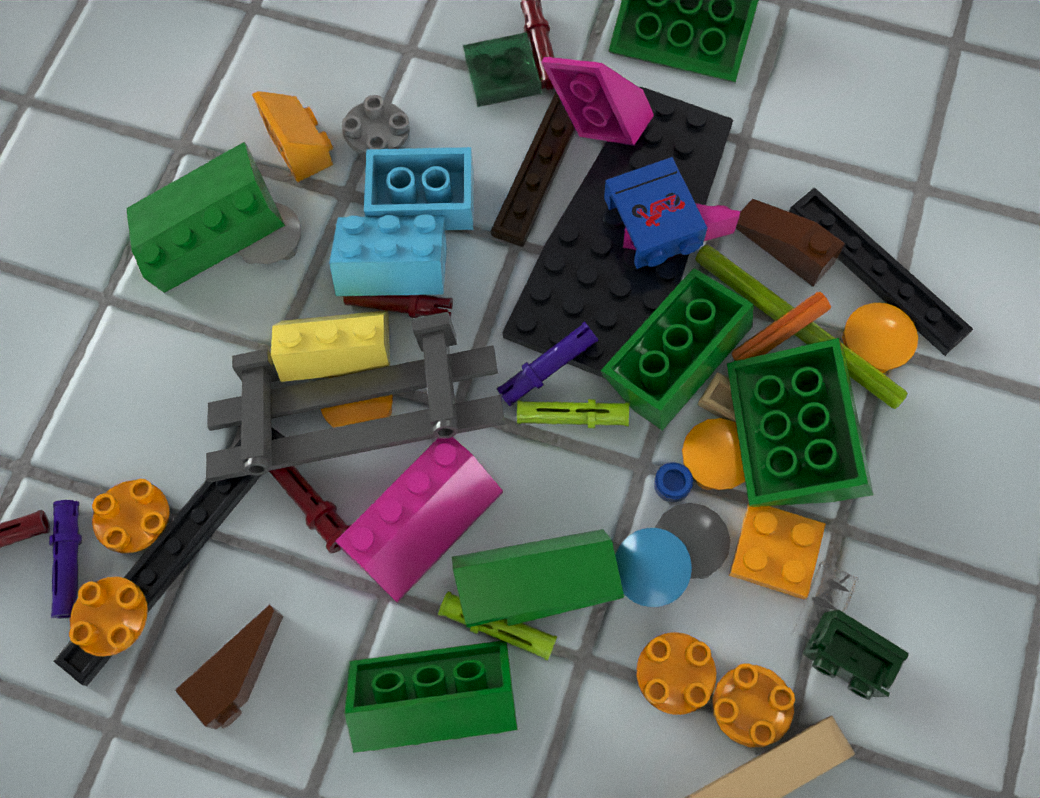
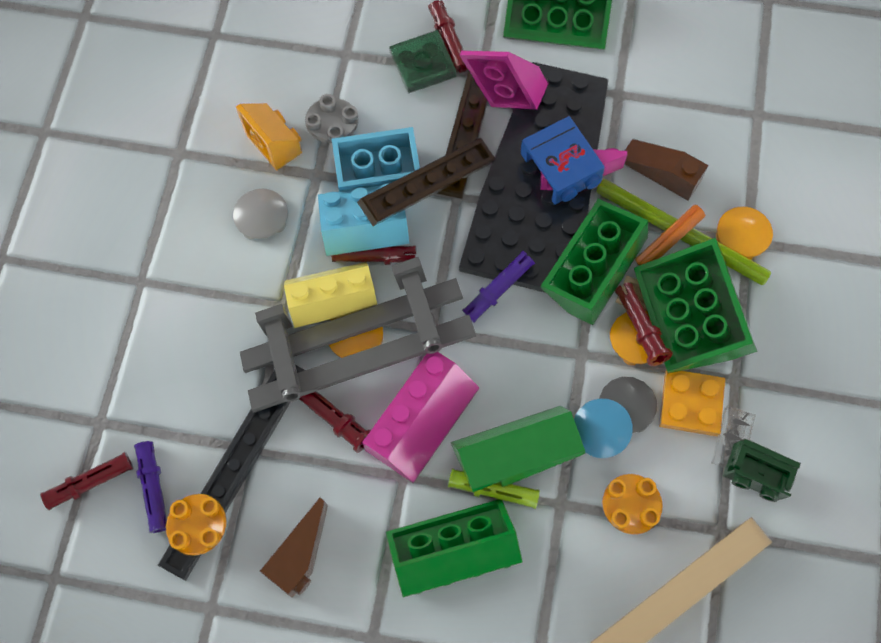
camera: 10 degrees left, 0 degrees up
(130, 516) = (195, 447): light orange dish -> none
(201, 219) = (208, 208): green slope -> none
(473, 218) = (425, 181): none -> dark brown tile
(573, 413) = (523, 321): lime pin -> none
(673, 482) = (607, 363): blue tile -> none
(730, 452) = (647, 334): none -> dark red pin
(753, 705) = (692, 519): light orange dish -> none
(885, 274) = (741, 184): black tile -> none

